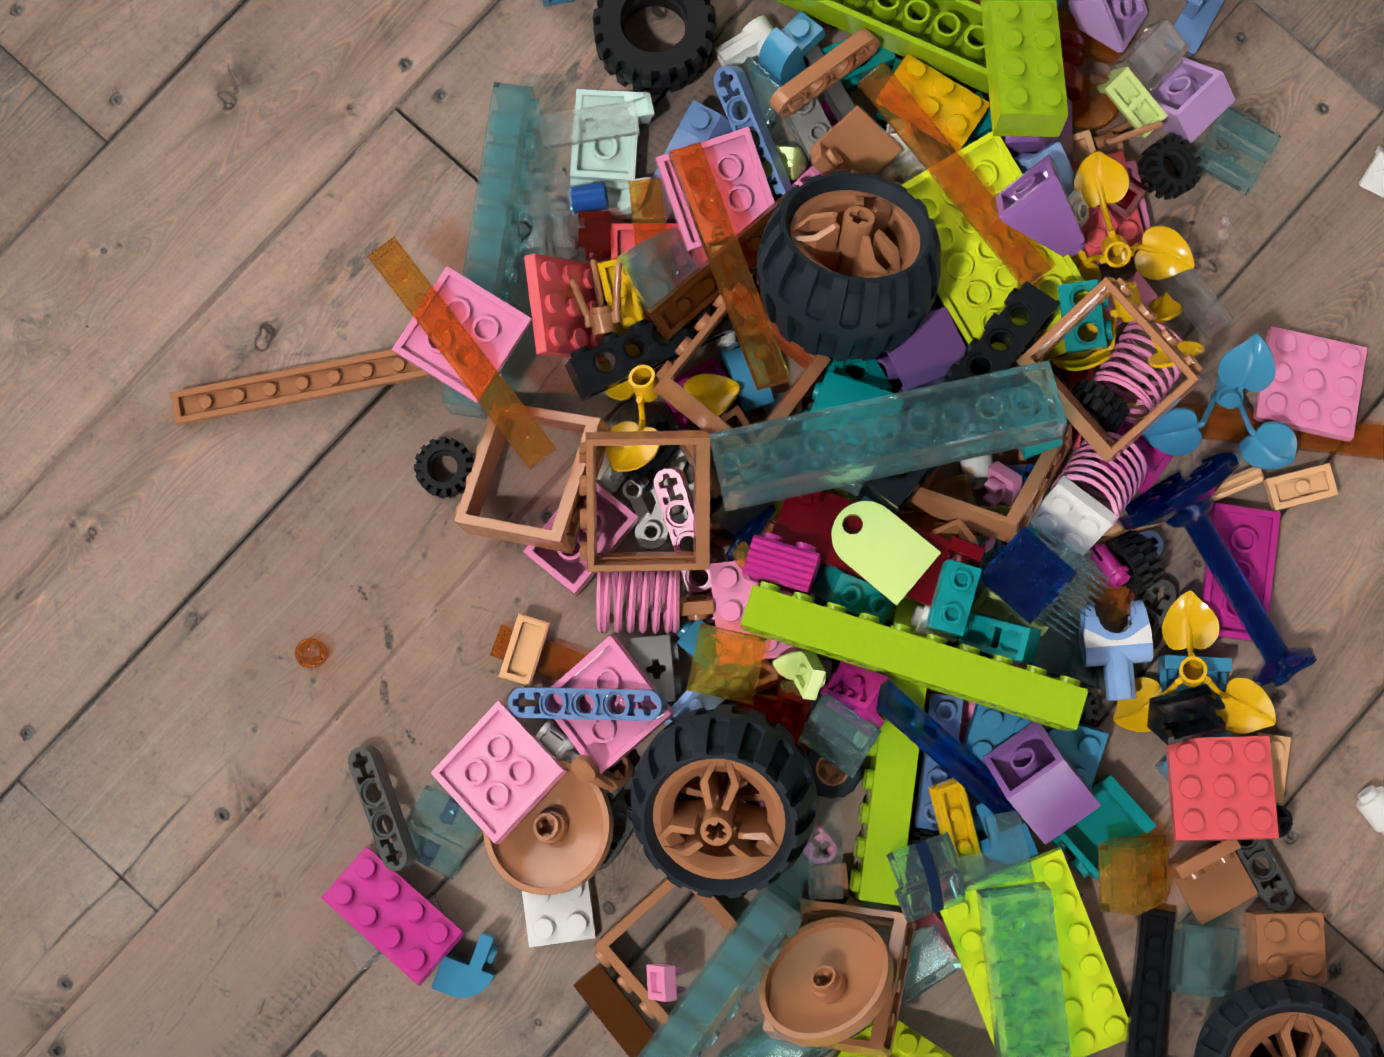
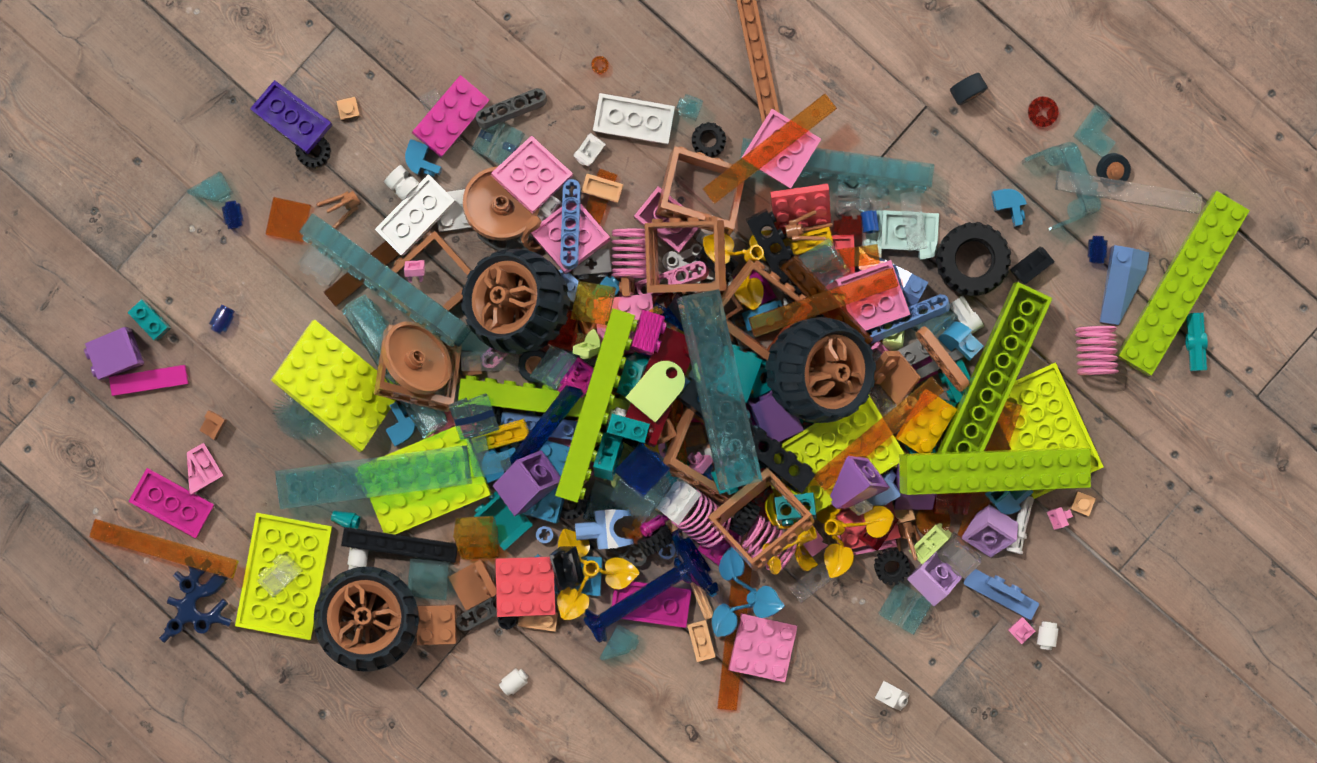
camera: 90 degrees right, 5 degrees up
(368, 33) = (968, 88): none -> black wheel
(387, 497) = (689, 107): none -> clear light blue brick
(405, 595) = (633, 118): none -> white plate
(458, 672) = (589, 150): none -> white bracket
(508, 1003) = (401, 182): none -> white wheel
(567, 979) = (415, 215): none -> white plate
(945, 1005) = (403, 429): none -> dark azure brick
(1118, 764) = (539, 531): none -> light blue bush
(1310, 626) = (620, 643): none -> clear light blue slope

